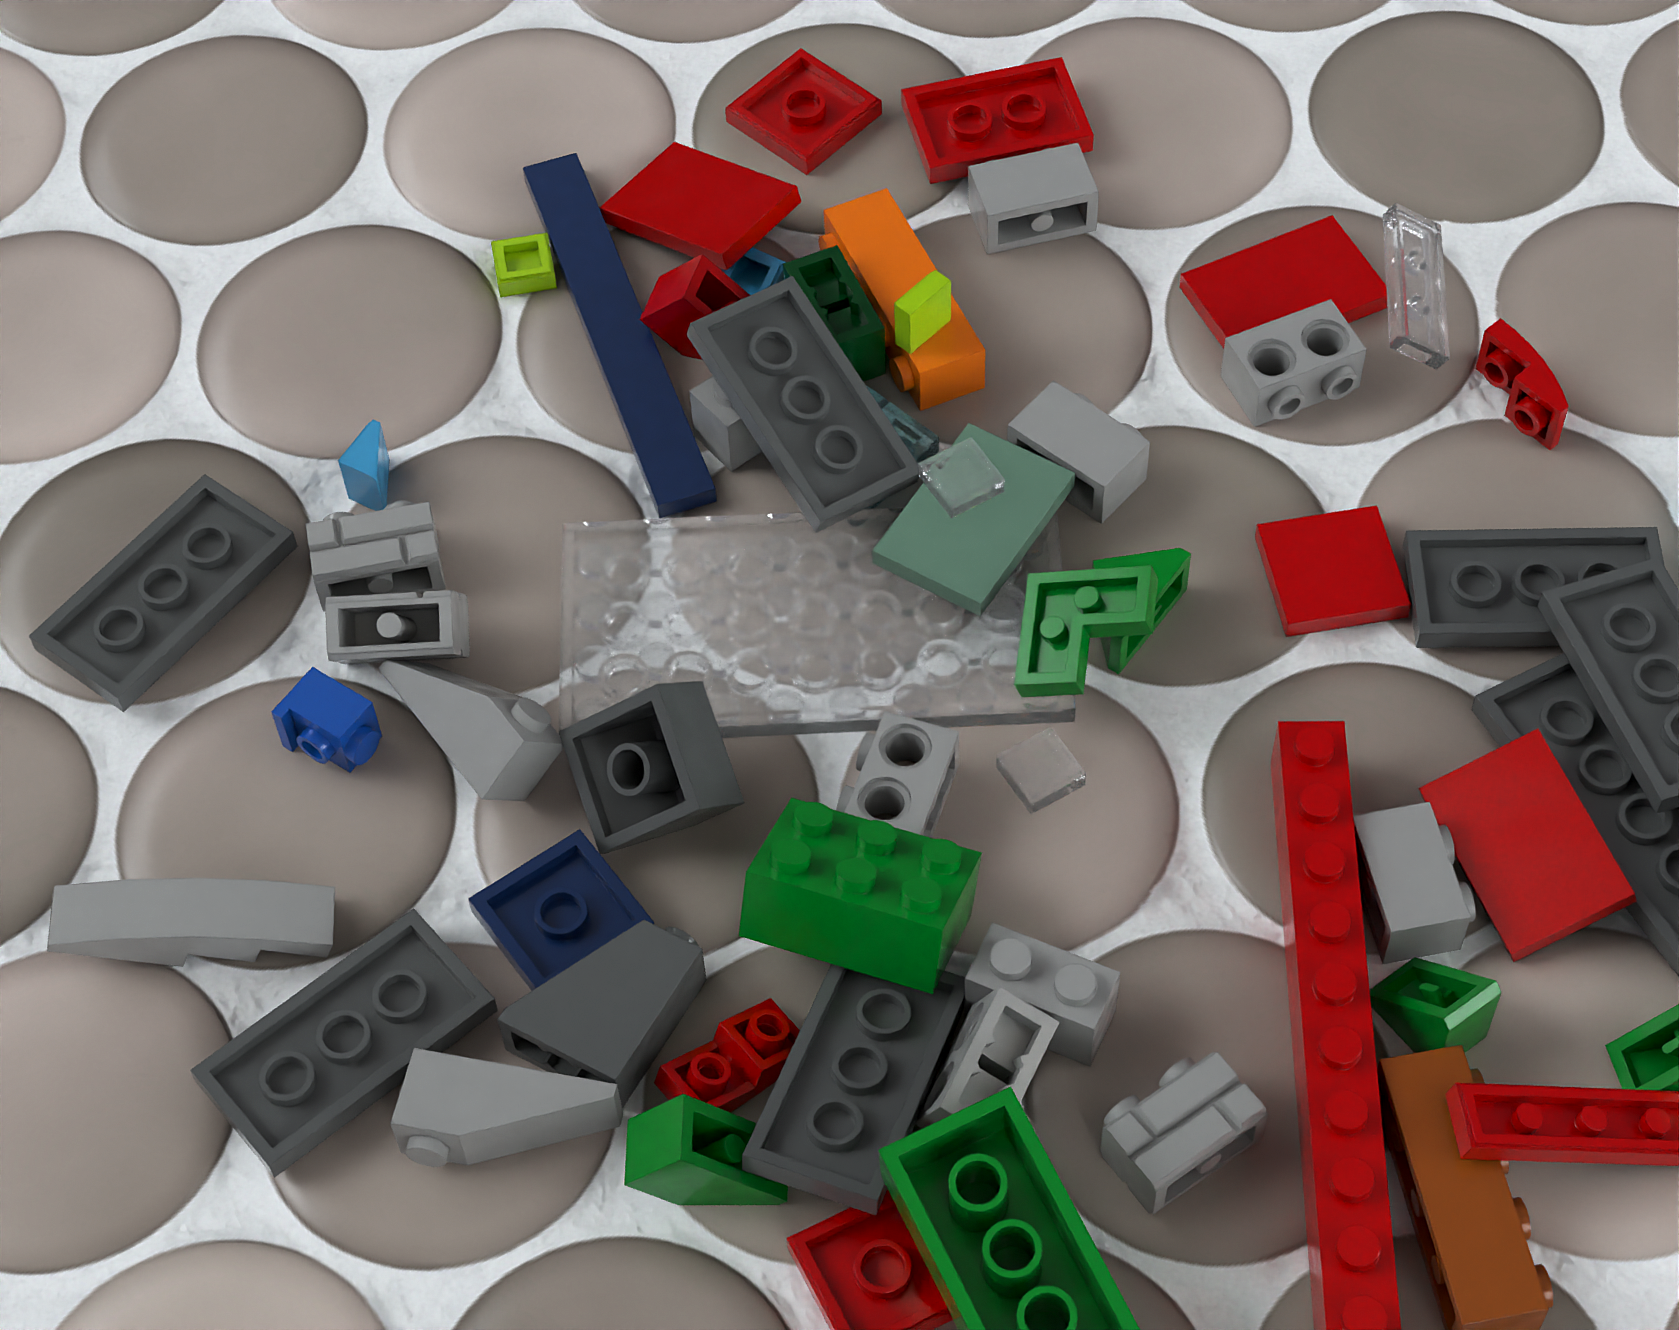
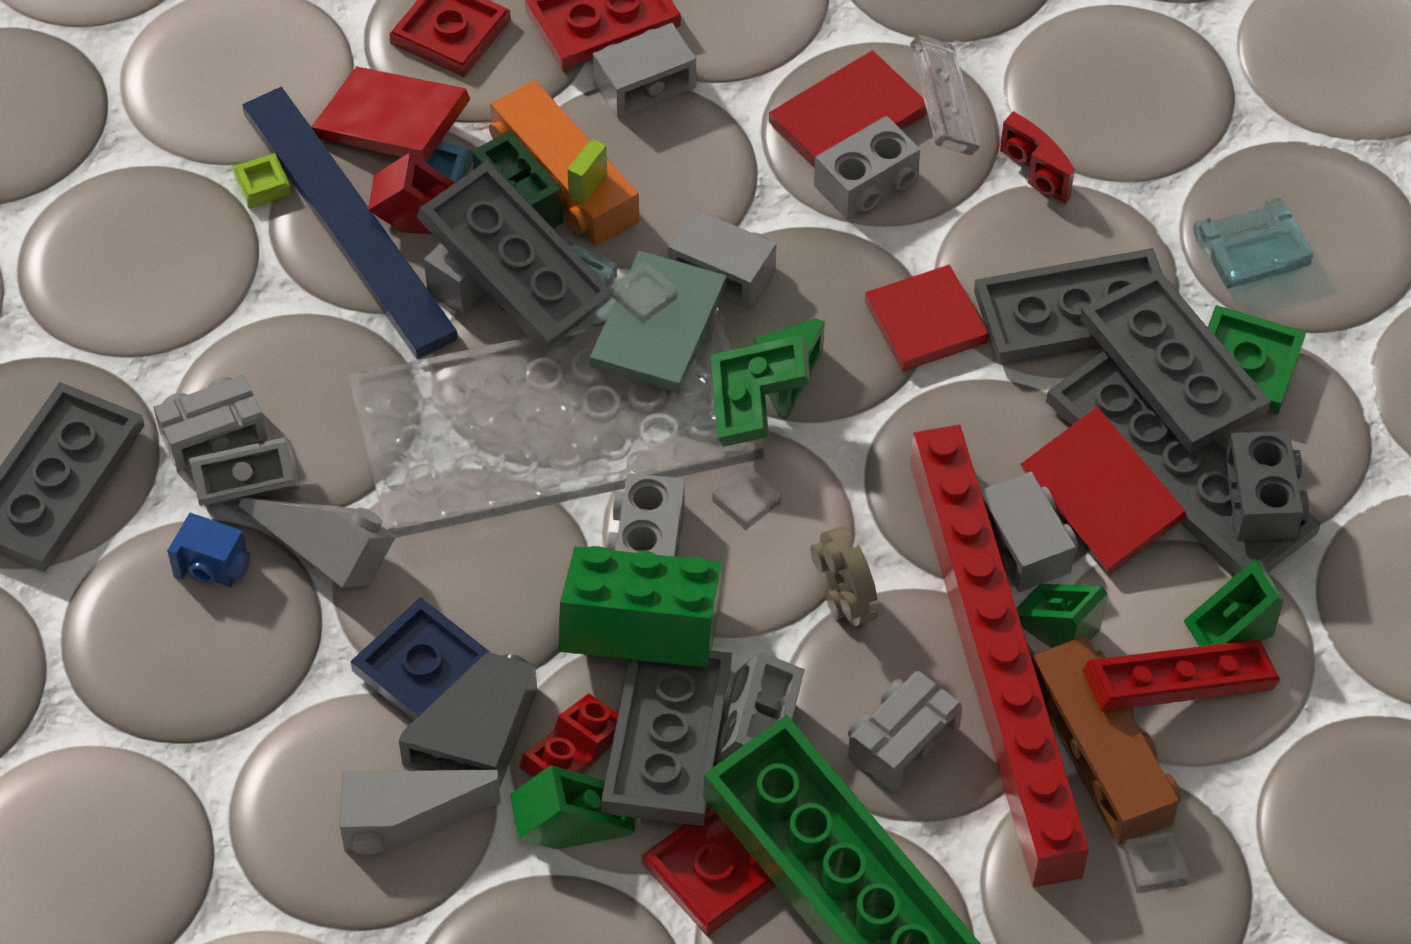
camera: 15 degrees left, 0 degrees up
(190, 916) = (144, 710): light grey slope -> none
(343, 1041) = (283, 779): dark grey plate -> none
(367, 468) = (183, 358): dark azure slope -> none
(651, 765) = (463, 541): dark grey slope -> none
(1052, 980) = (791, 640): light grey brick -> none
(1148, 903) = (847, 577): none -> dark tan plate

